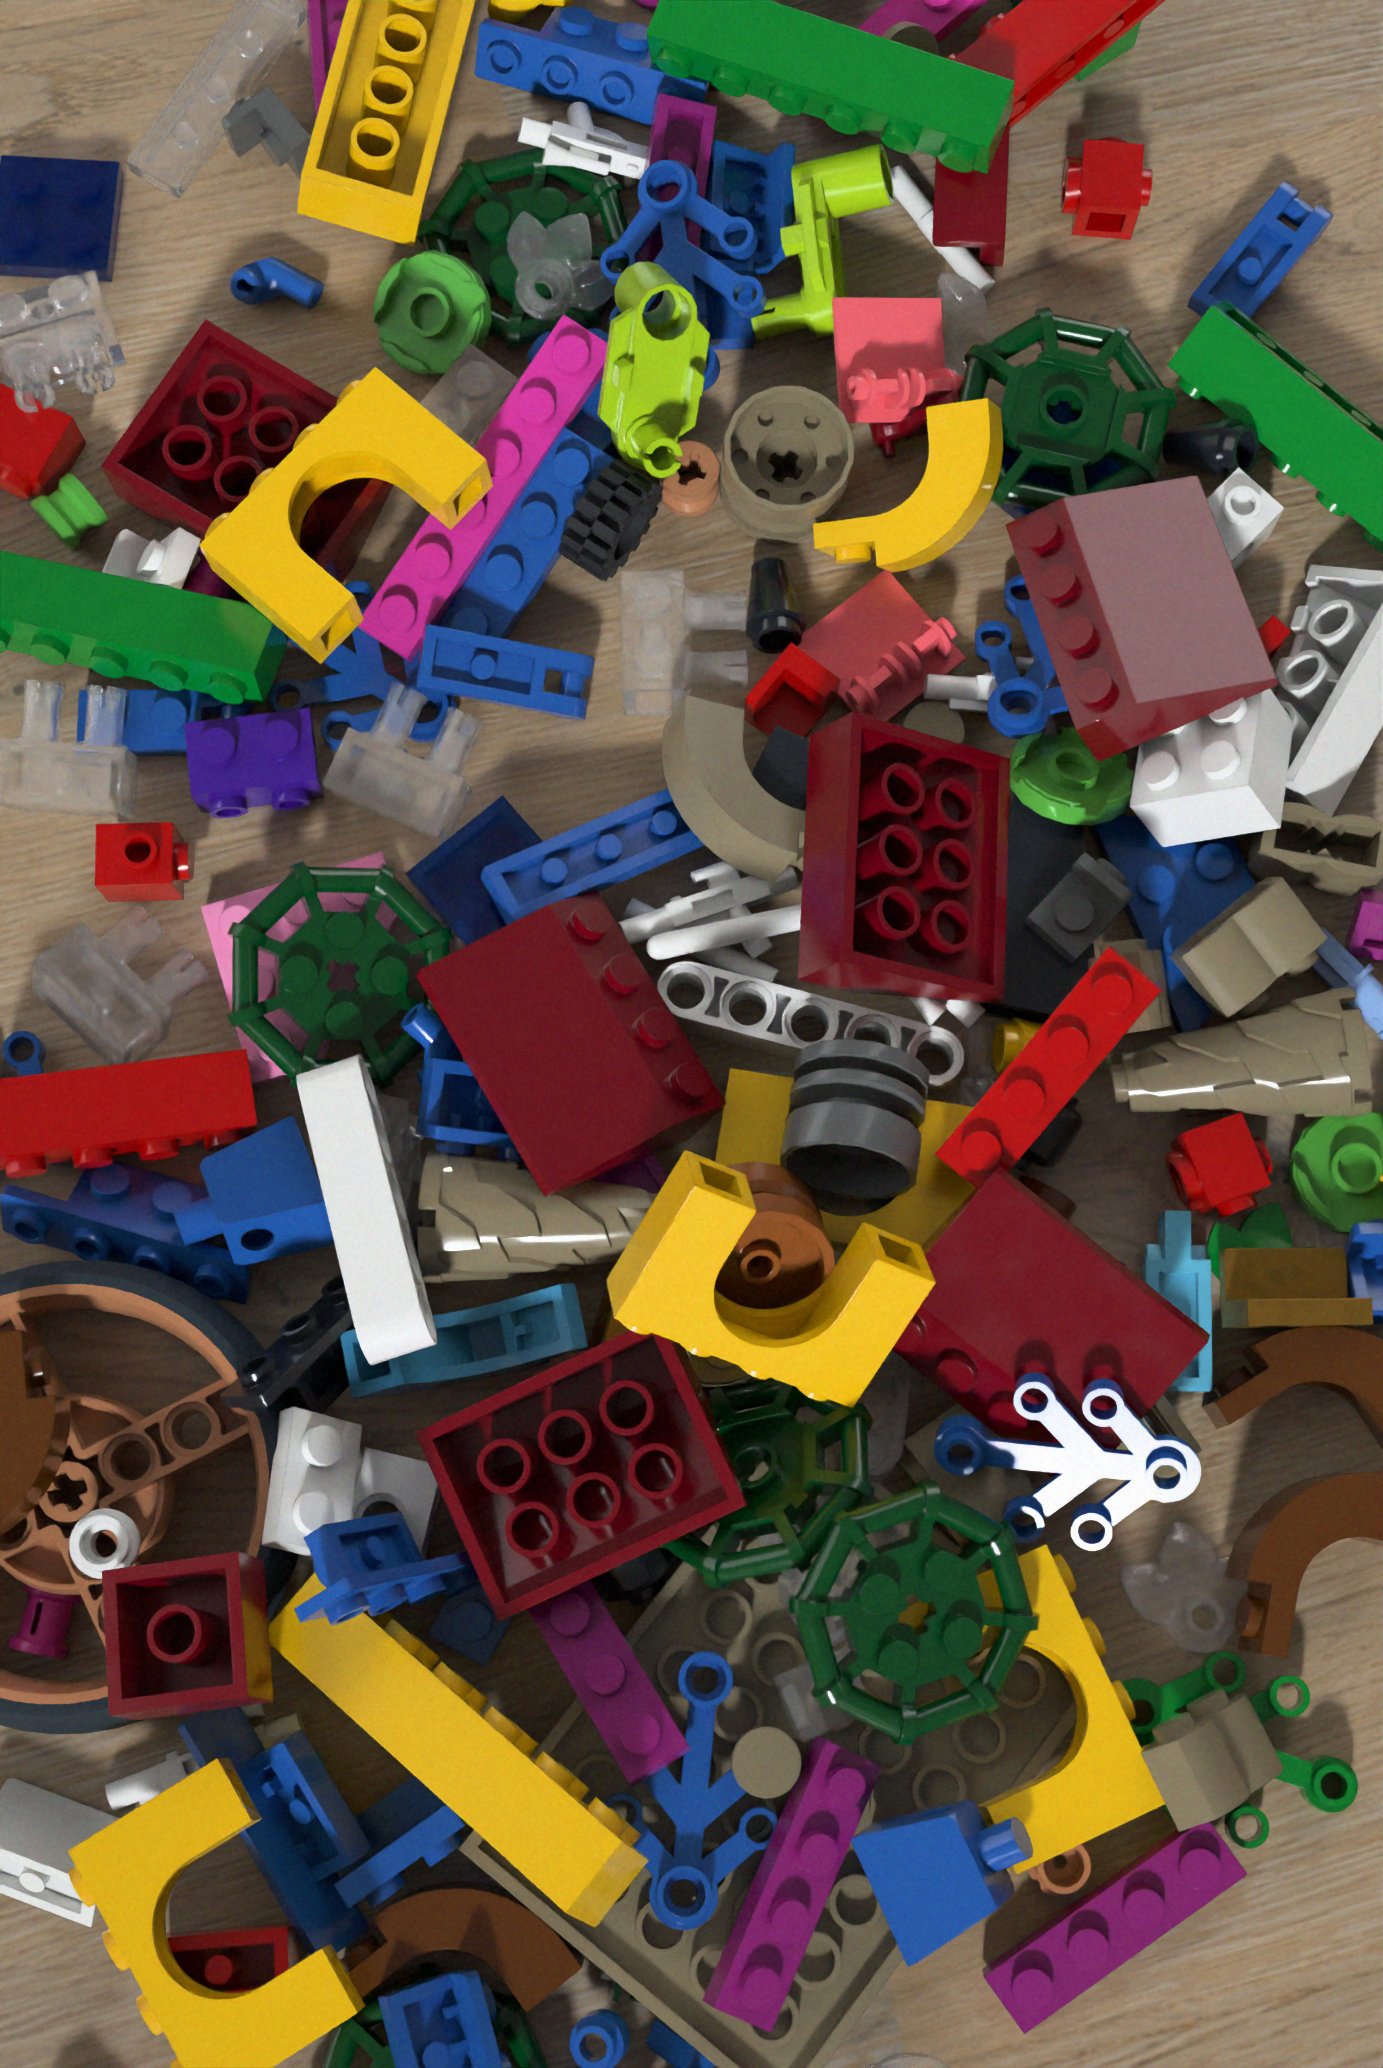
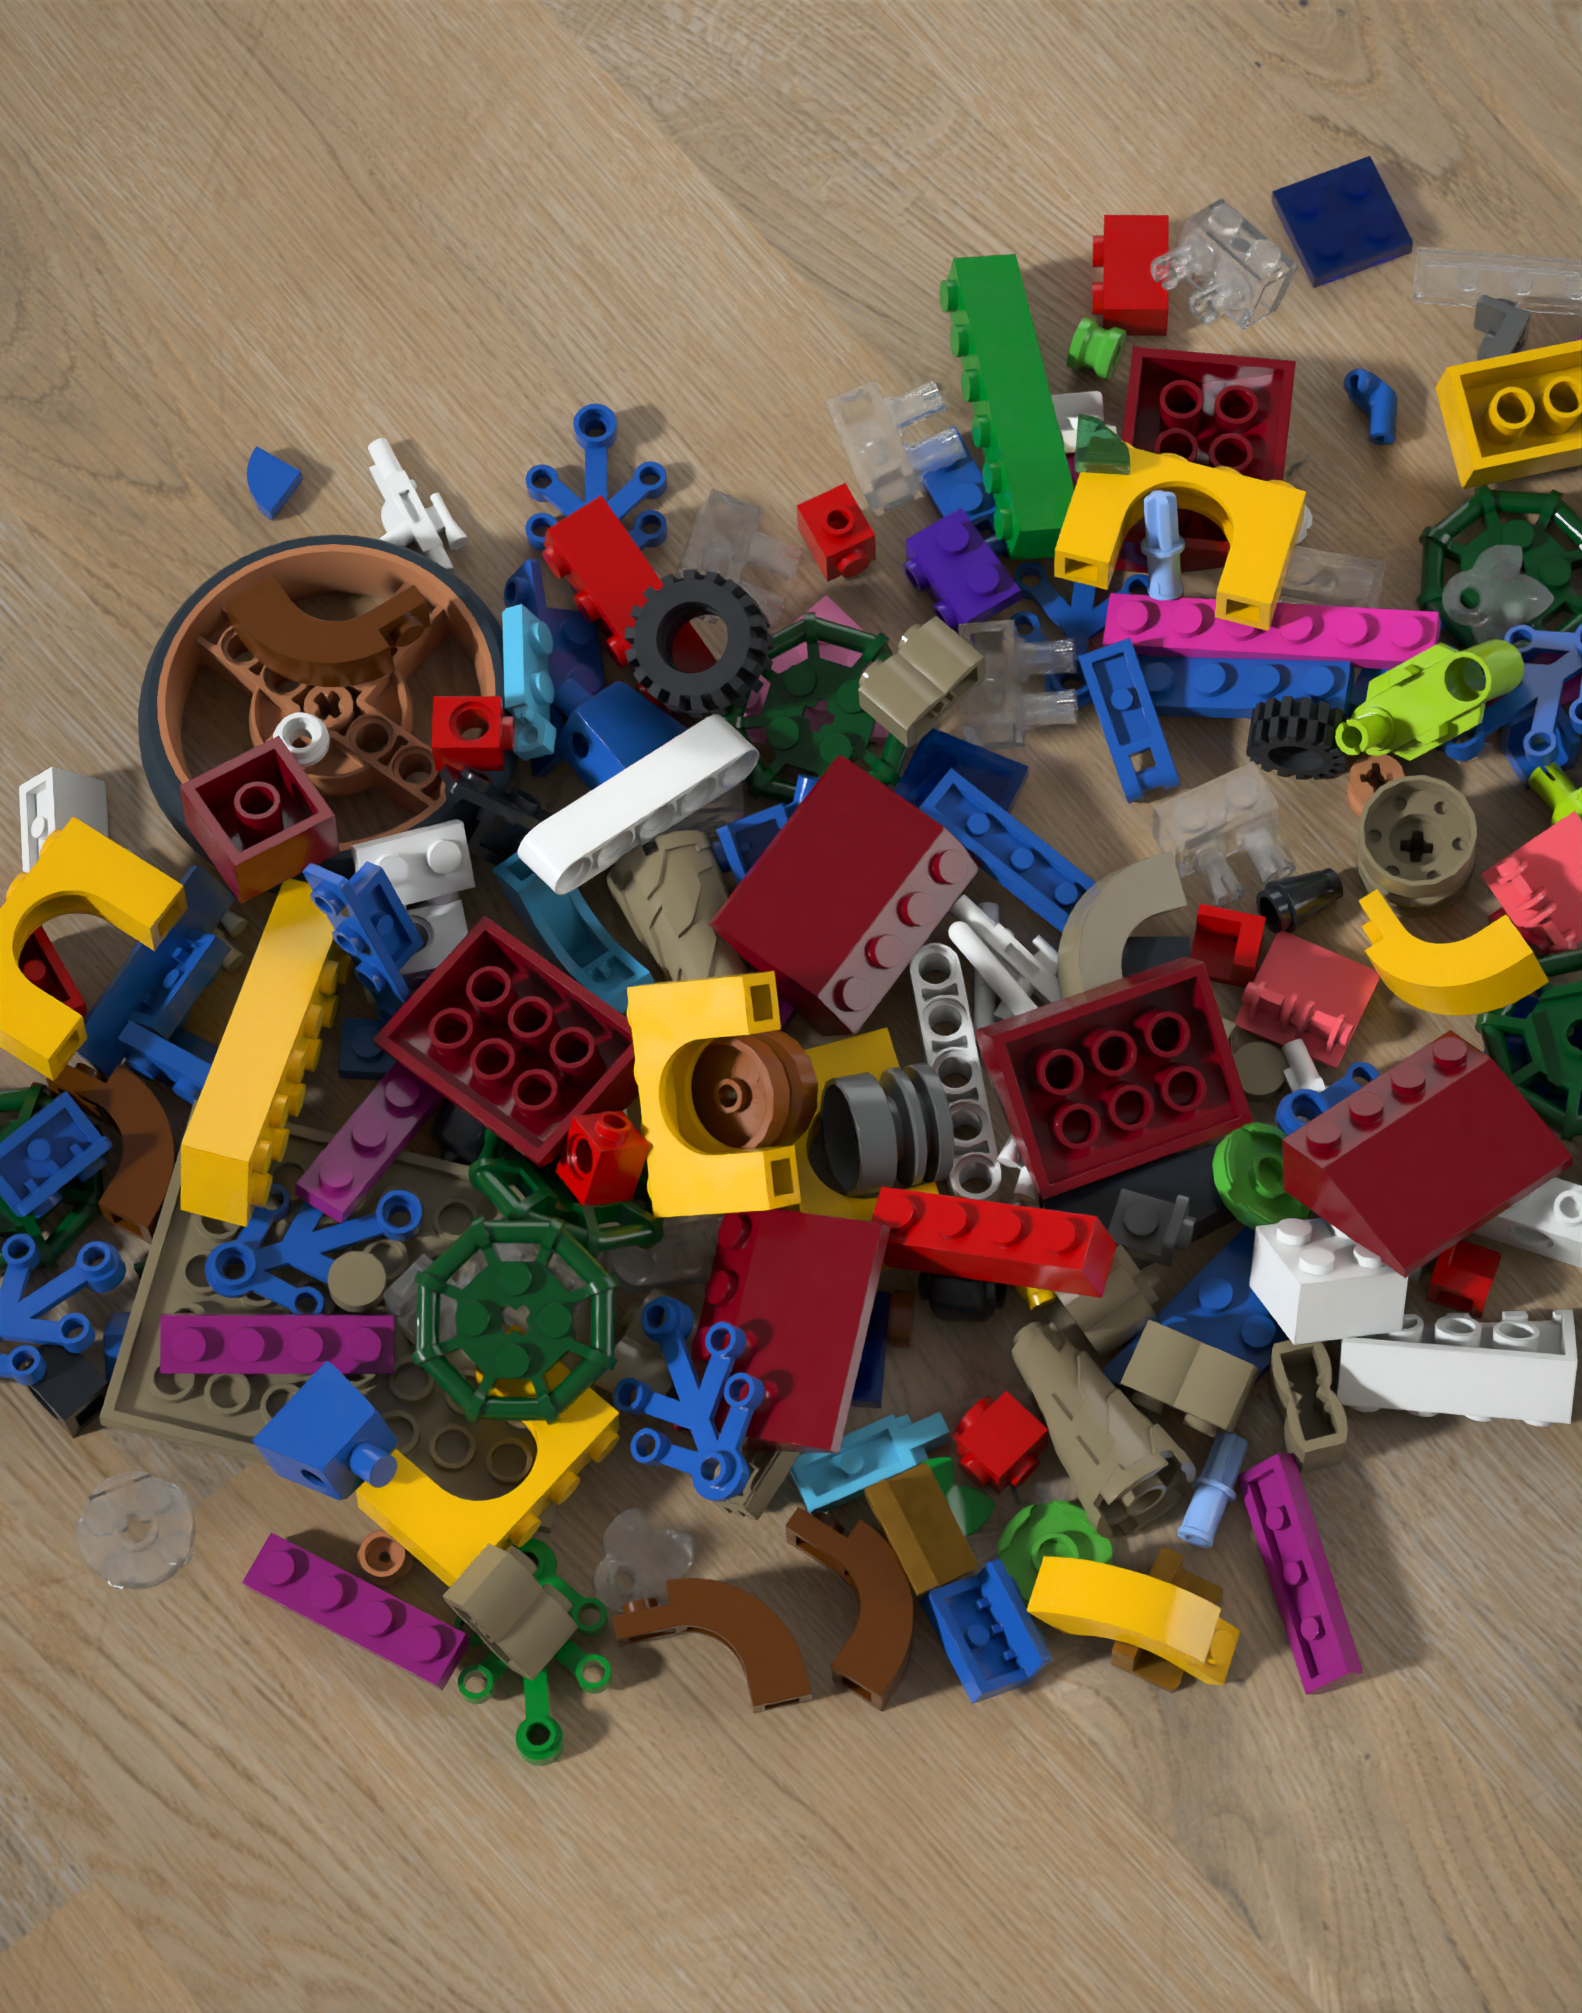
camera: 70 degrees right, 10 degrees down
(45, 1623) = (224, 745): dark pink bush -> none
(157, 1261) = (527, 681): none -> medium azure hinge
(169, 1360) = (460, 713): none -> red brick
(215, 1116) = (666, 614): none -> black tyre
(218, 541) = (1099, 448): none -> clear green tile
(347, 540) = (1162, 545): none -> light blue axle
(374, 850) = (921, 680): none -> dark tan brick
(431, 312) = (1409, 528): bright green tile -> none
(765, 1432) = (602, 1158): none -> red brick

